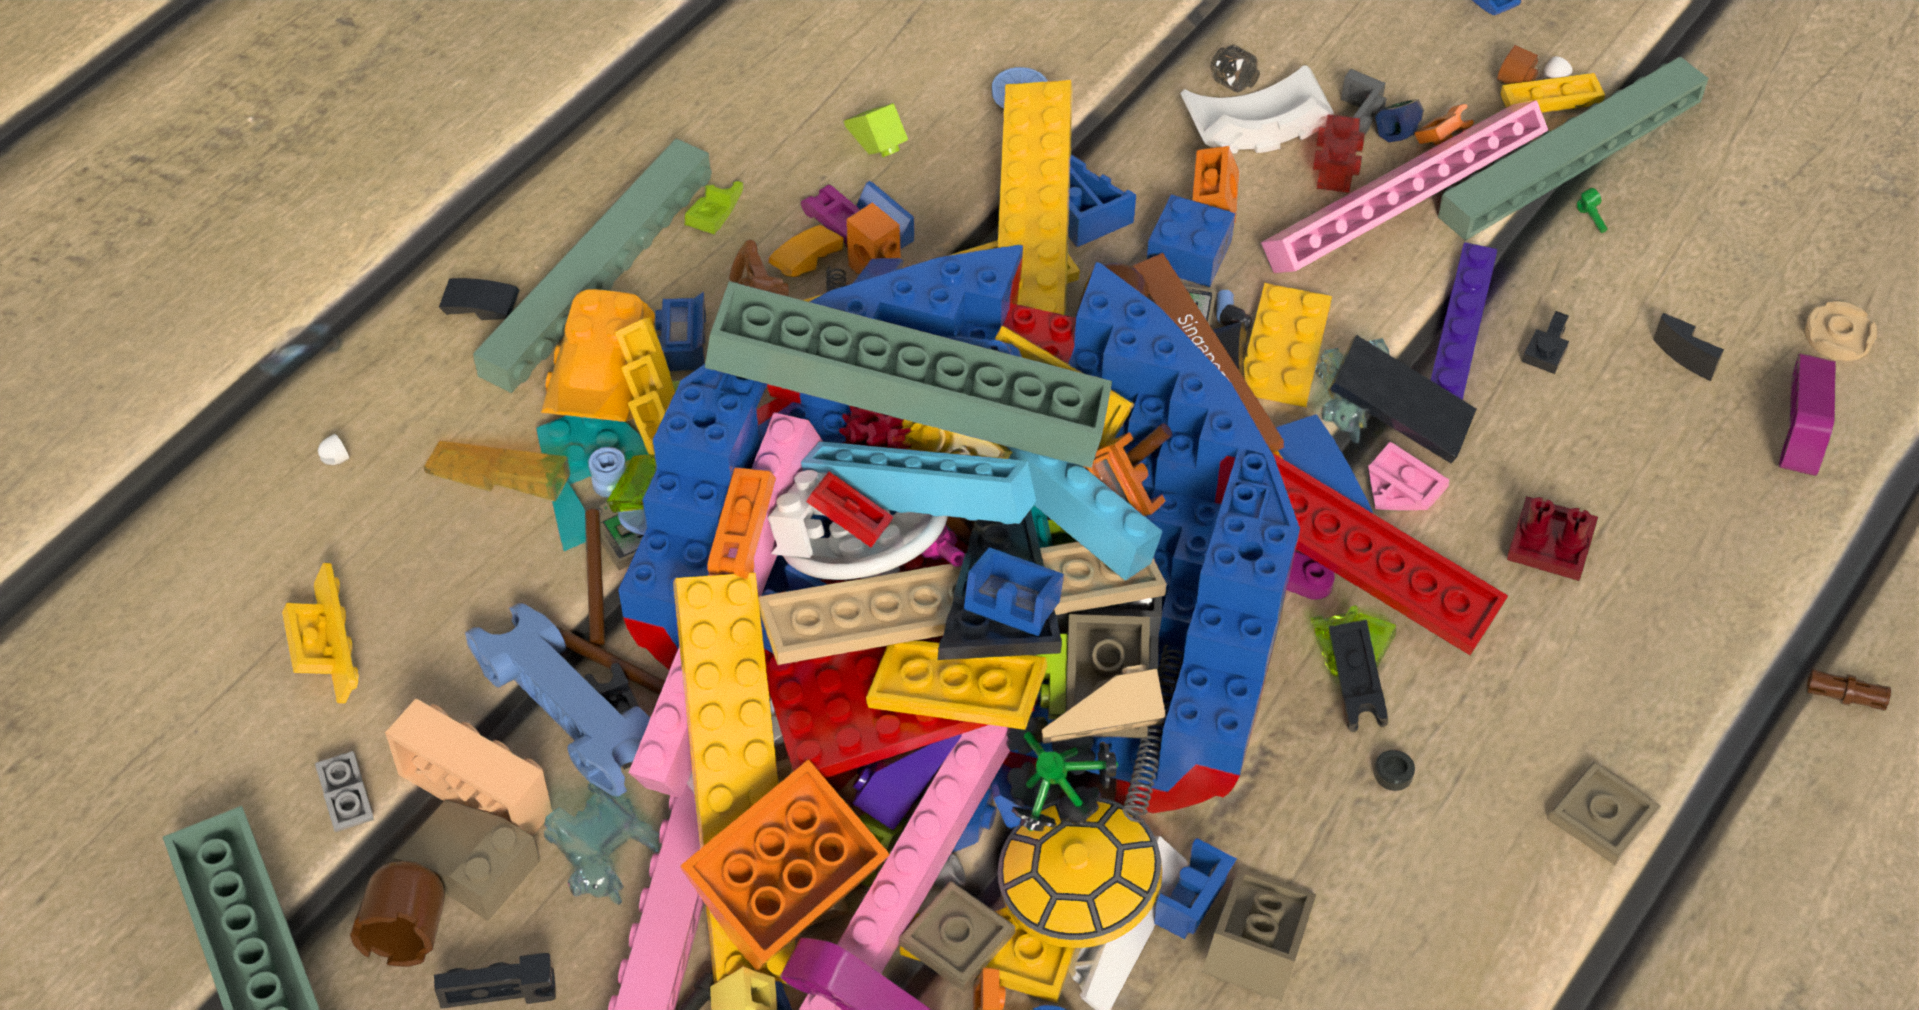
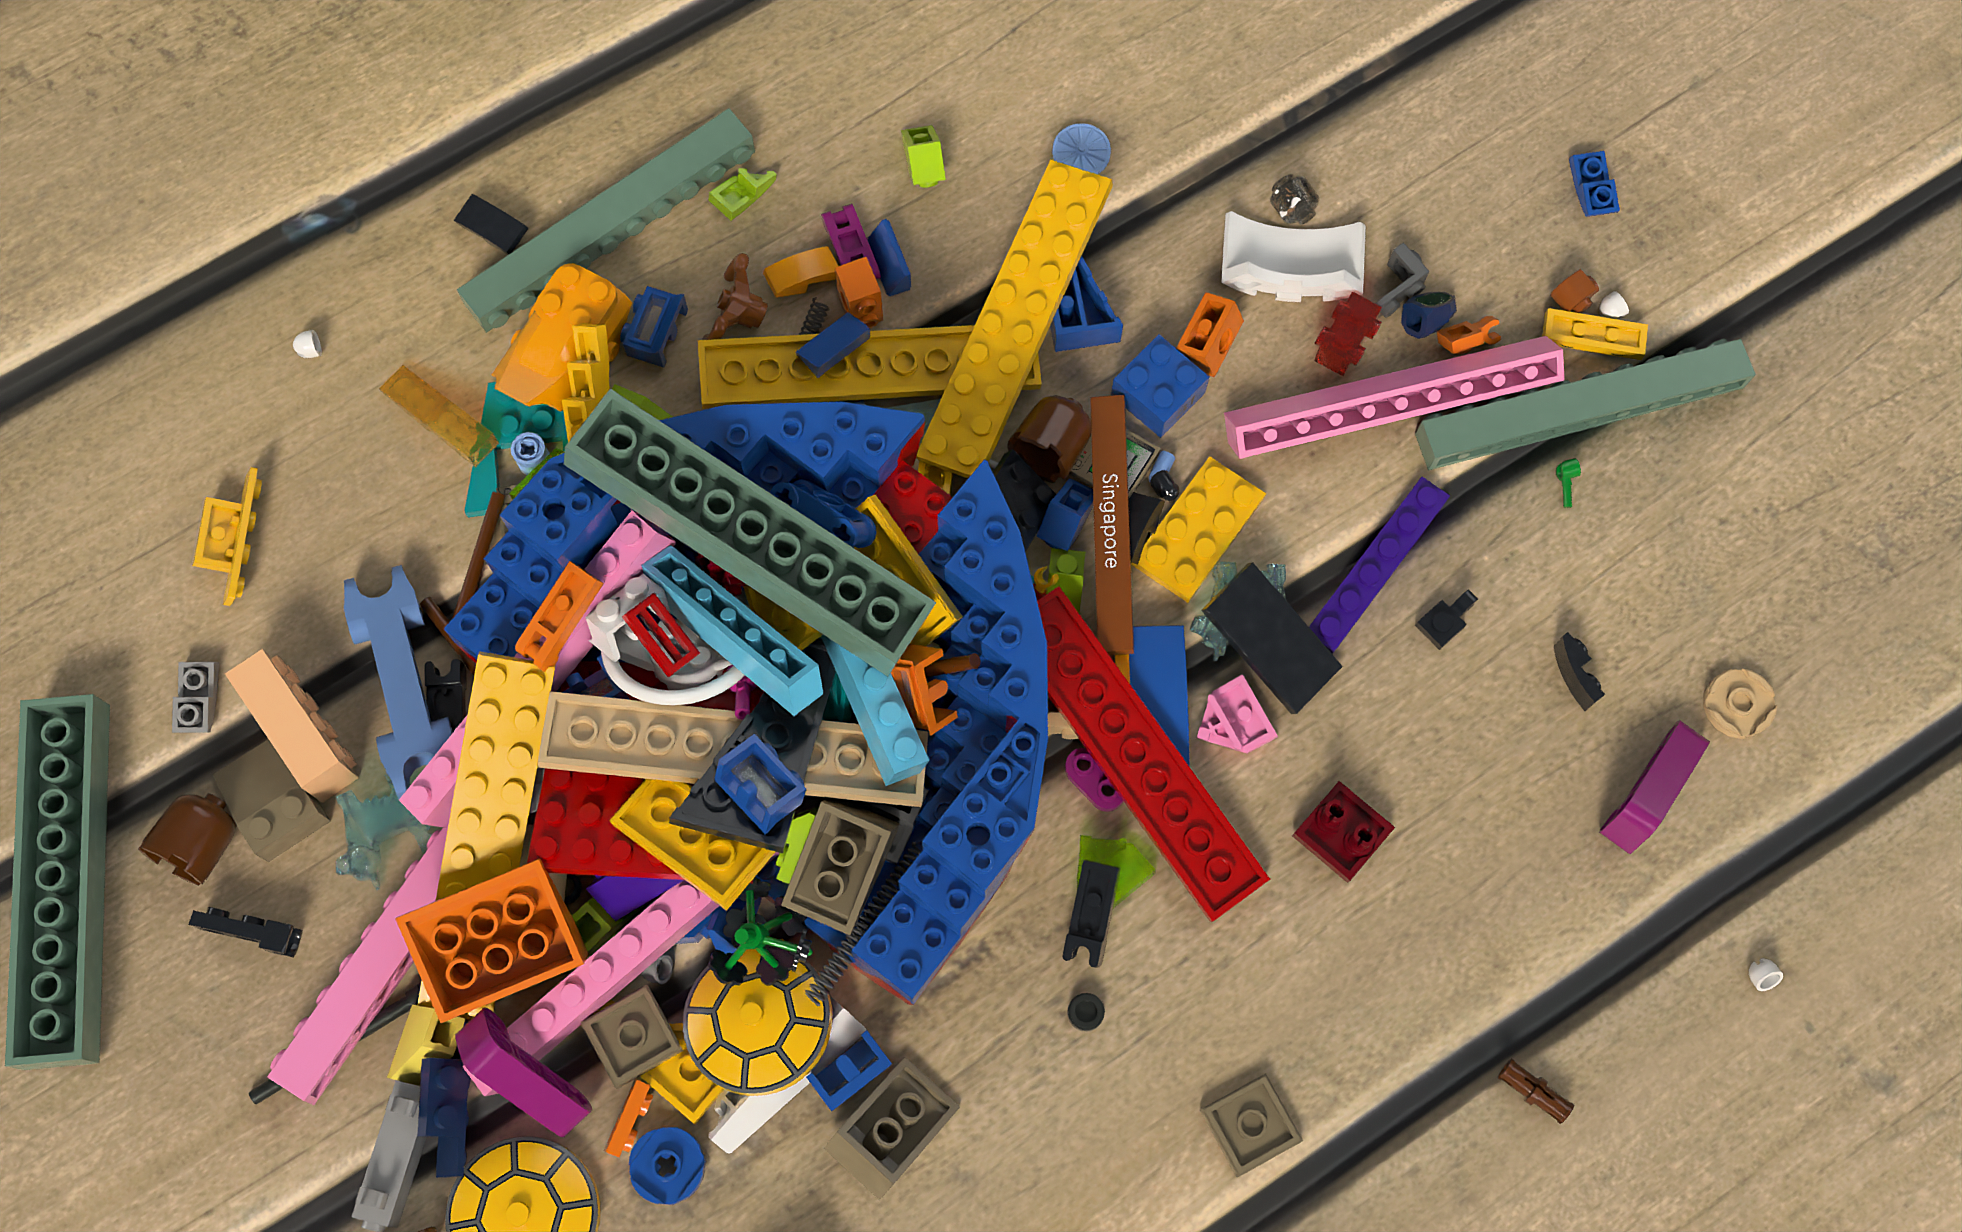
camera: 20 degrees right, 20 degrees up
(1118, 705) = (831, 906): tan slope -> none

